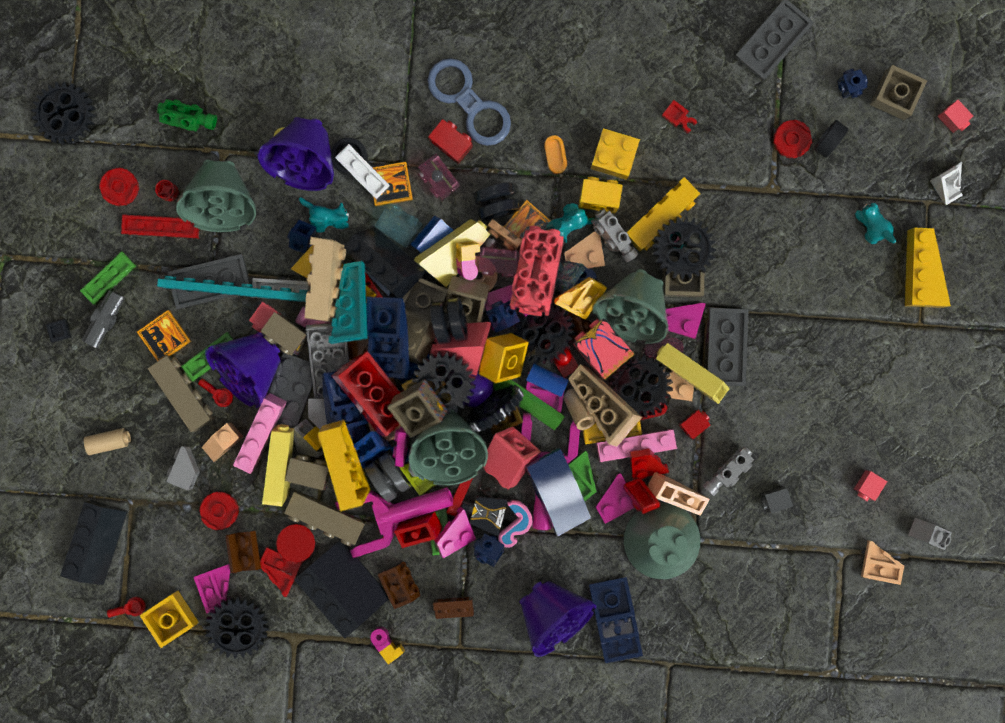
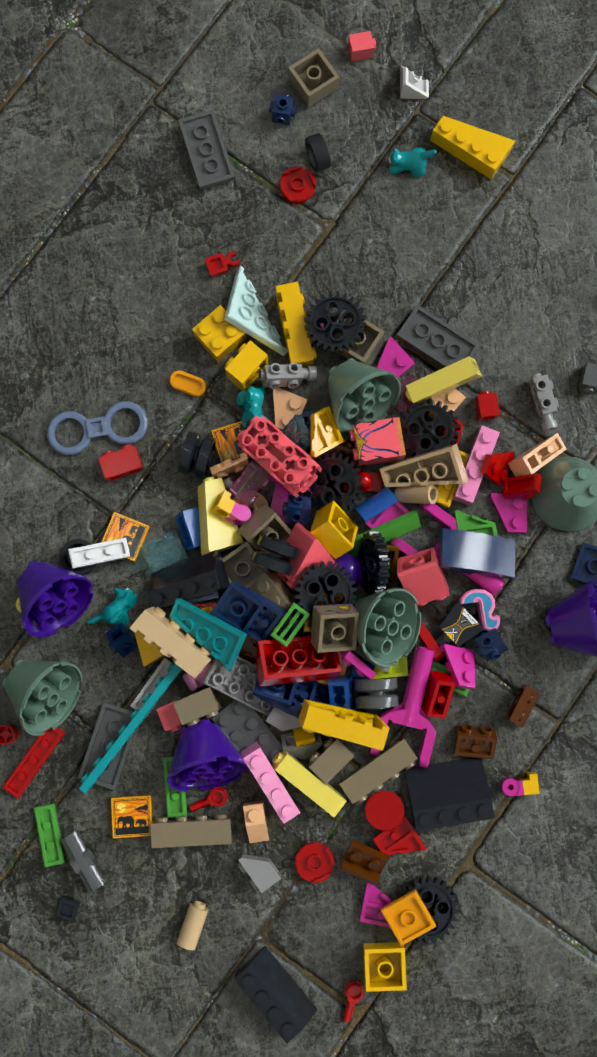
camera: 60 degrees left, 5 degrees down
(219, 614) = (408, 917): none -> light orange tile
(408, 378) = (280, 638): none -> bright green tile
(439, 177) = (145, 491): clear pink piece -> none
(648, 168) = (250, 315): none -> light aqua tile

